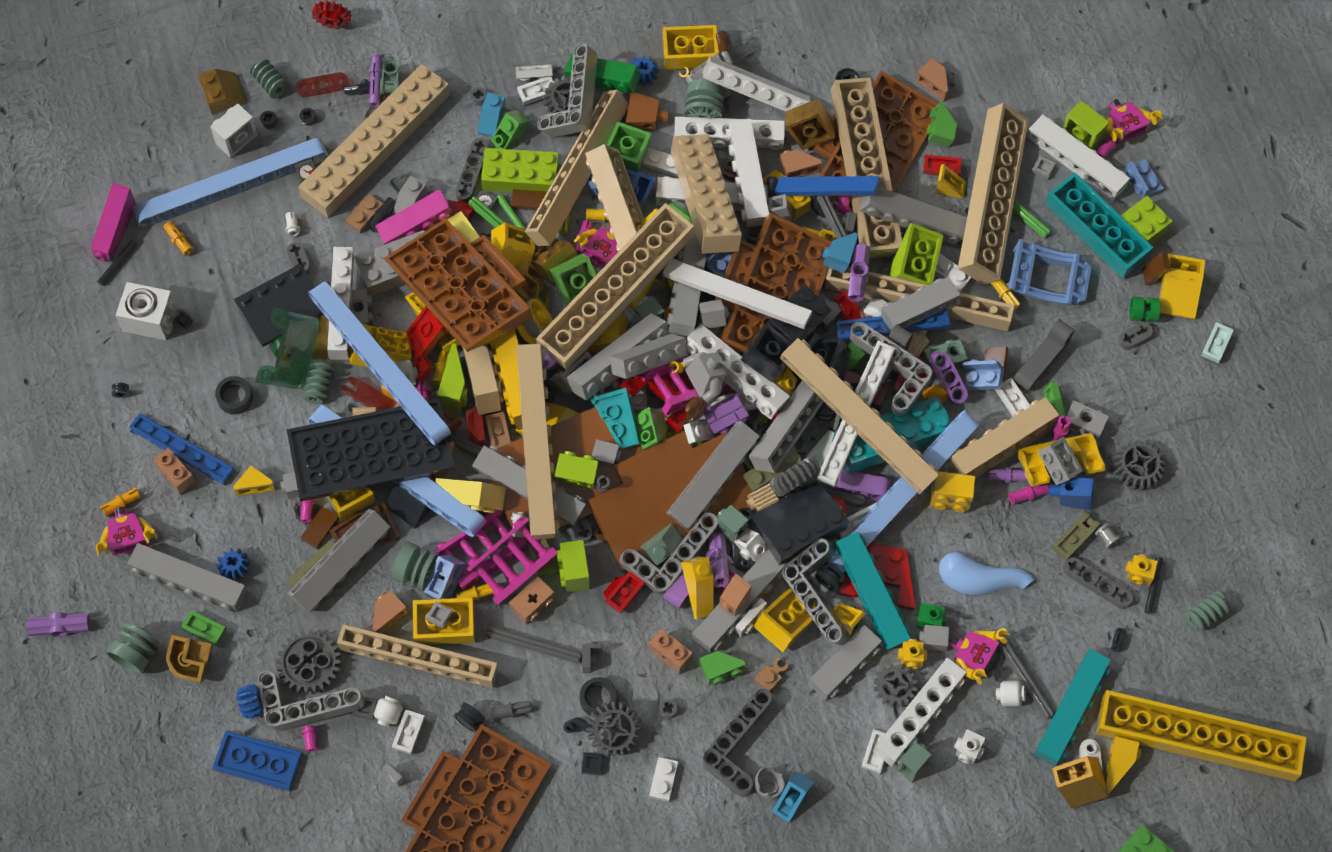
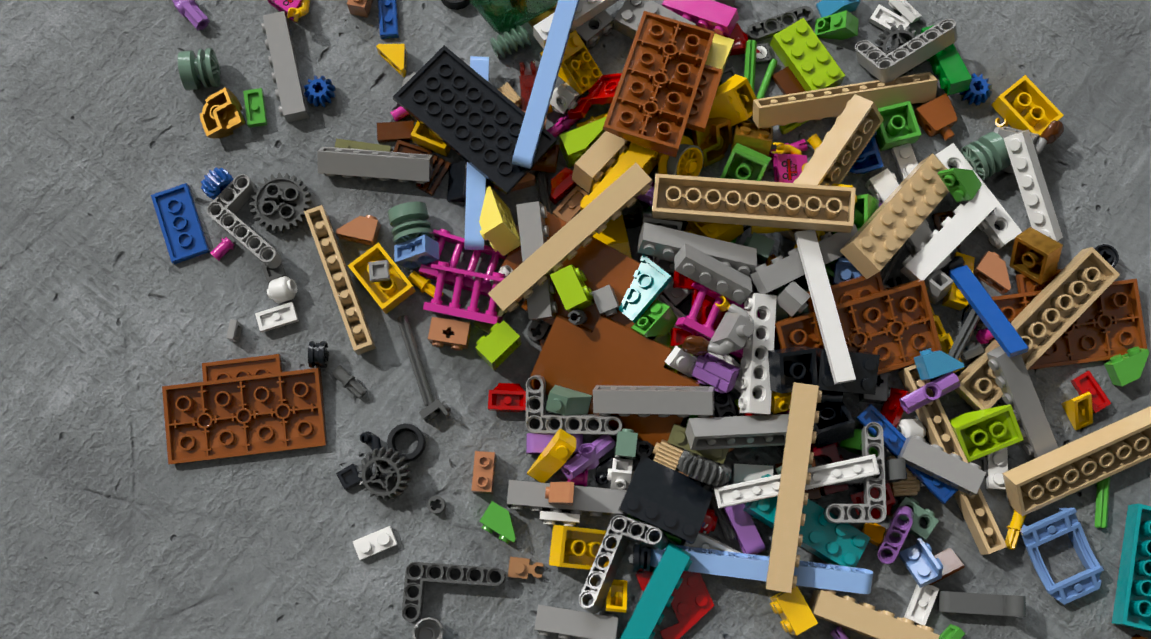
camera: 55 degrees right, 10 degrees up
(714, 133) = (961, 183): none -> bright green slope

